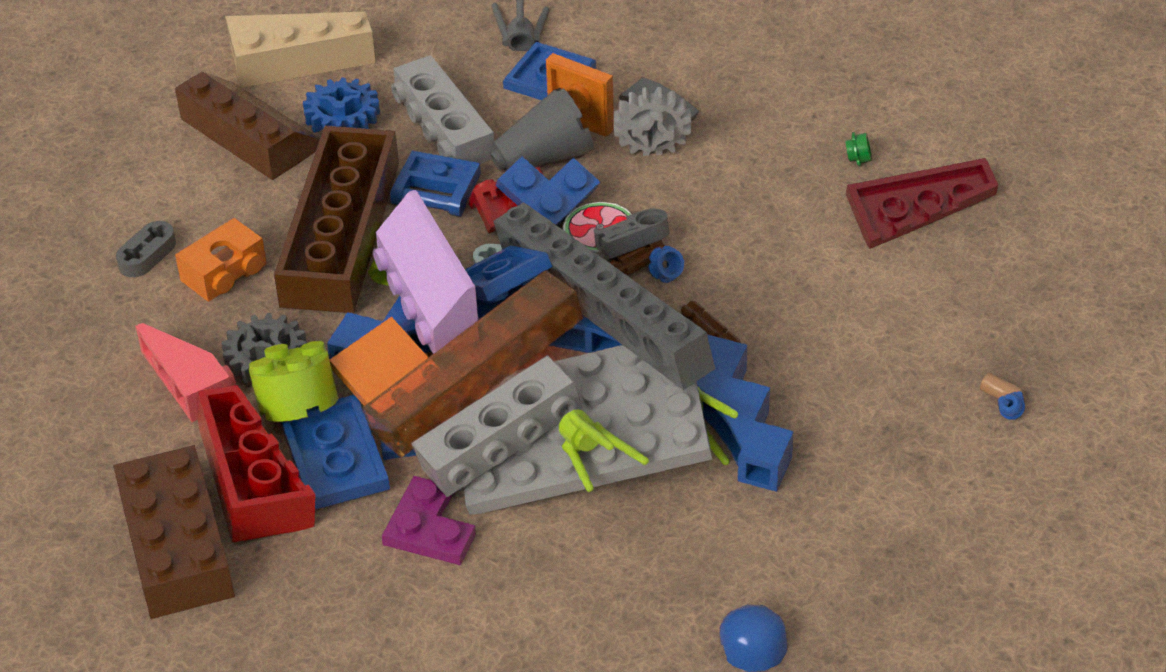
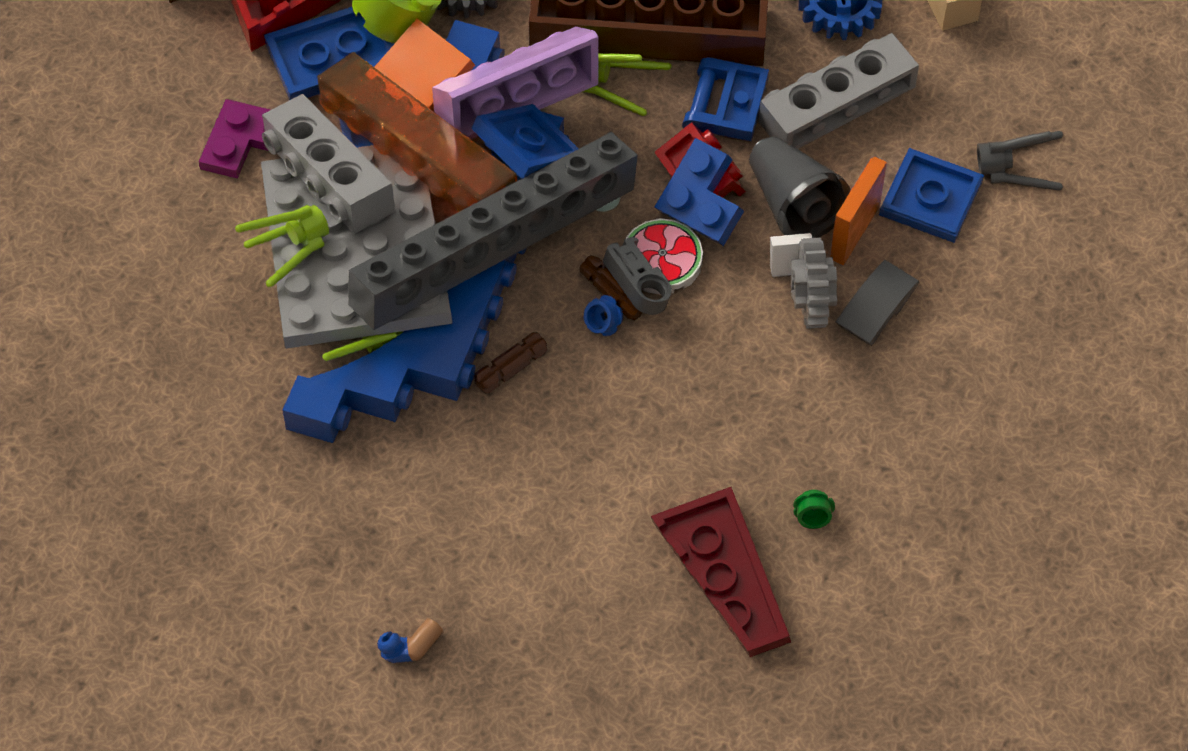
camera: 85 degrees right, 15 degrees up
(610, 147) = (782, 251): none -> white tile
(753, 638) = (92, 404): blue hair -> none

